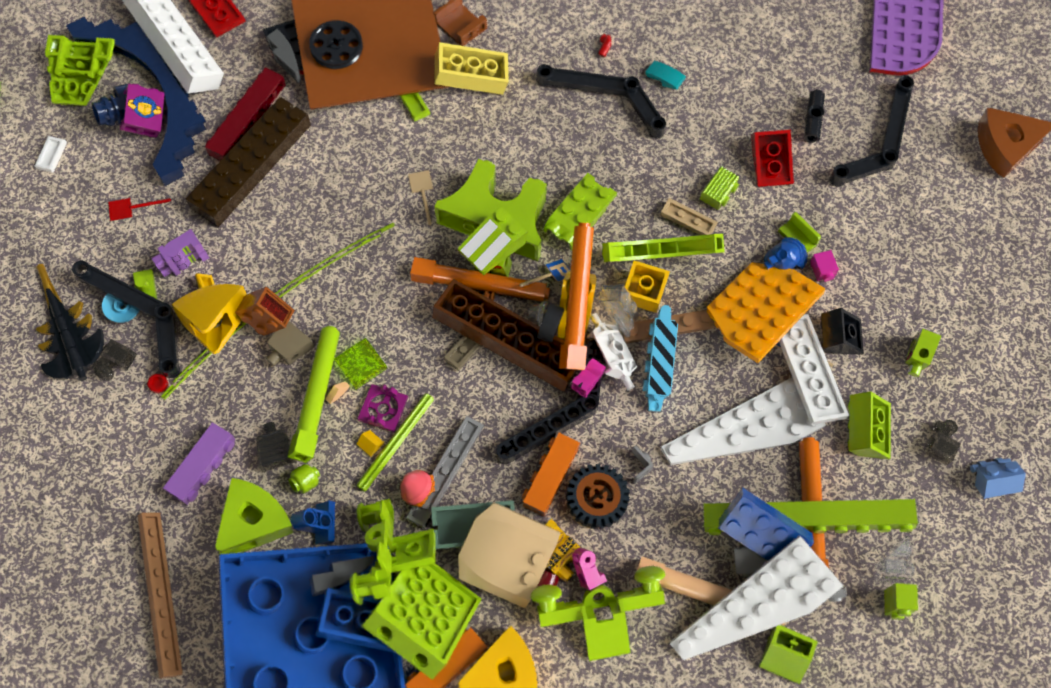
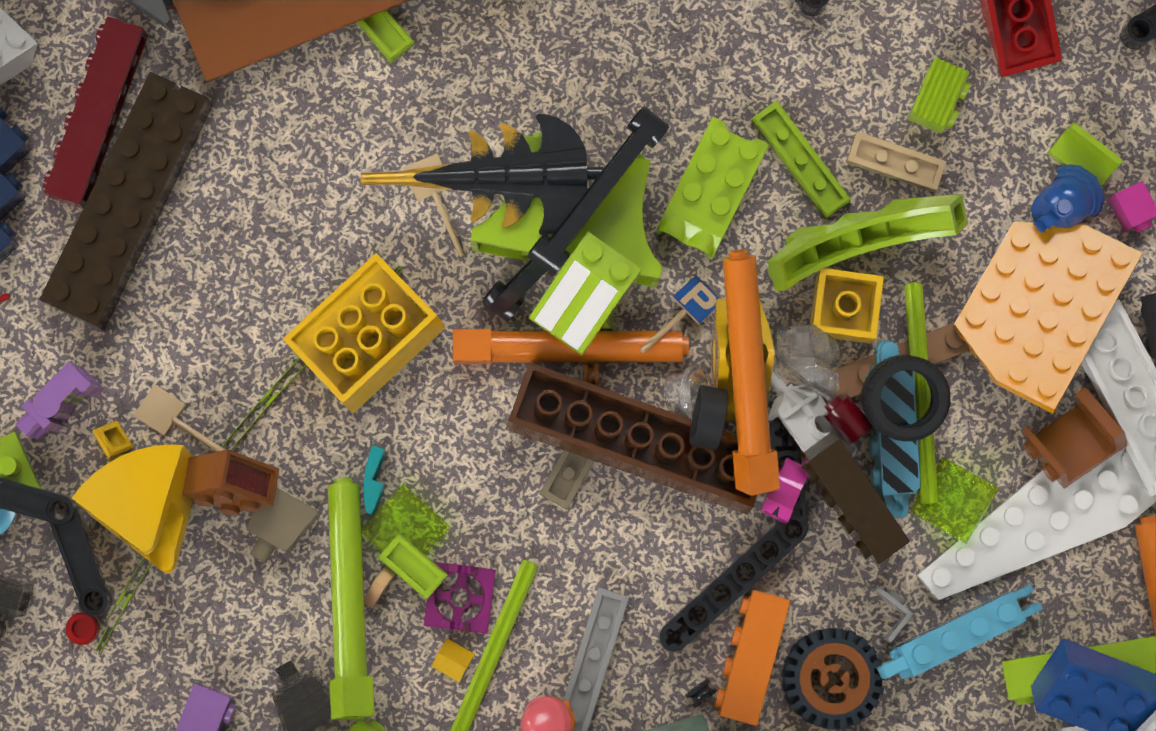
camera: 15 degrees left, 15 degrees up
(238, 274) = (162, 410): none -> tan piece
(347, 335) = (372, 489): none -> teal slope
(359, 383) = (413, 566): none -> lime tile
(364, 252) = (364, 333): none -> yellow slope
(477, 214) = (549, 252): none -> black piece
(490, 179) = (553, 174): none -> black animal
(514, 489) = (701, 692): none -> black bush
(628, 386) = (853, 499): none -> dark brown wedge
(633, 344) = (846, 418): none -> dark red brick
(634, 209) = (801, 159): none -> lime tile
(679, 483) = (958, 634): none -> medium azure hinge
(682, 319) = (937, 409): none -> black tyre
(683, 319) = (918, 347): none -> lime axle
(690, 407) = (961, 501): none -> clear neon green tile
(770, 386) = (1076, 441): none -> dark orange panel

